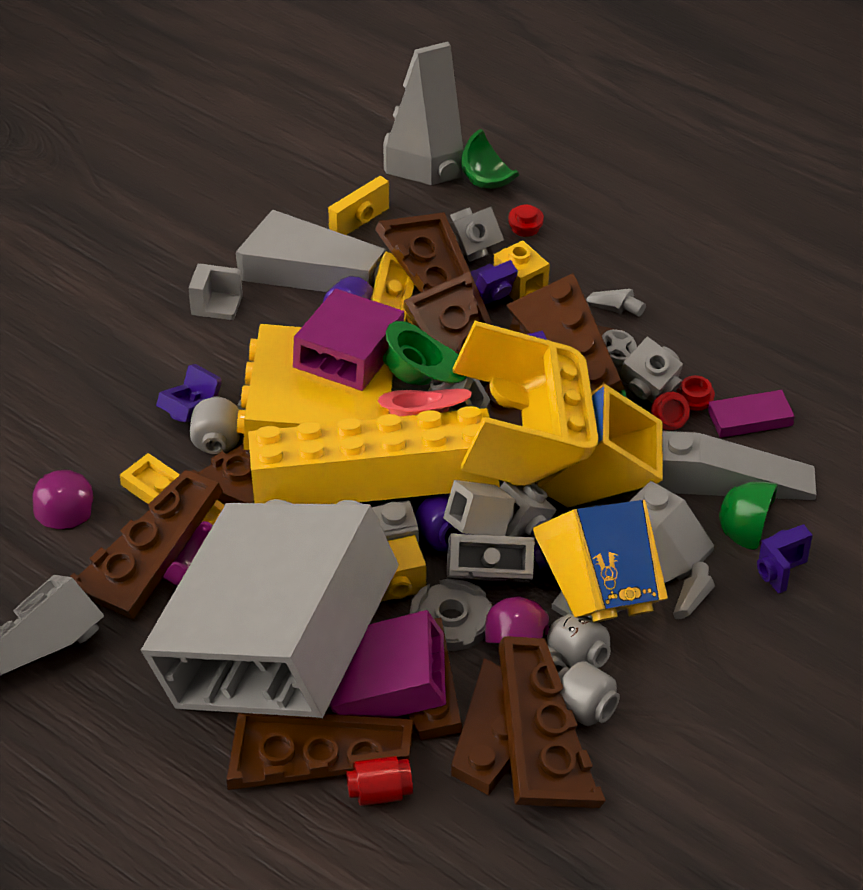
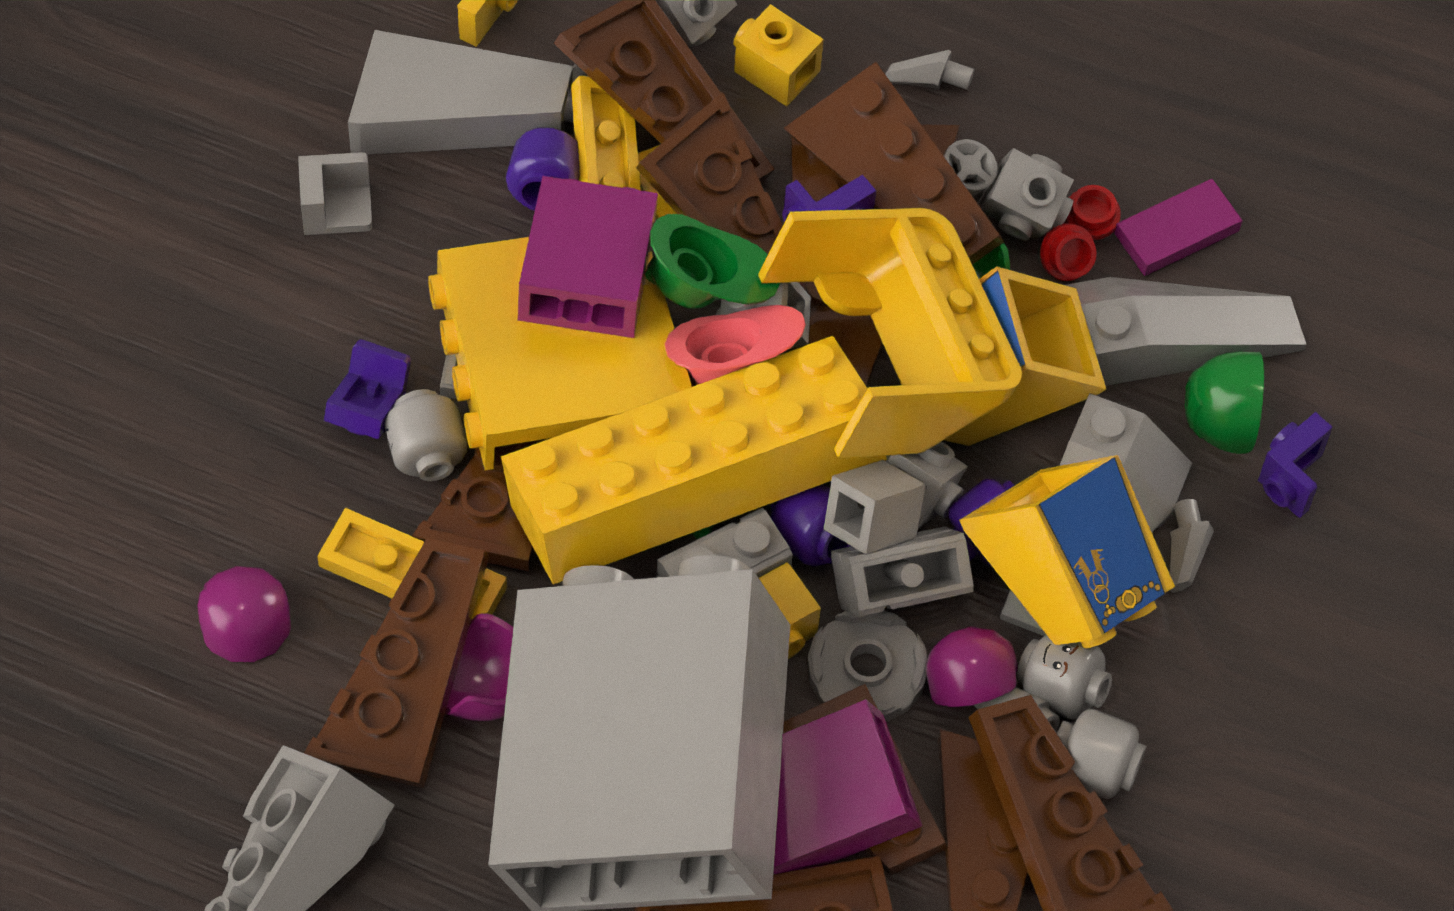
camera: 20 degrees left, 15 degrees up
(494, 281) = (745, 87): dark purple bracket -> none

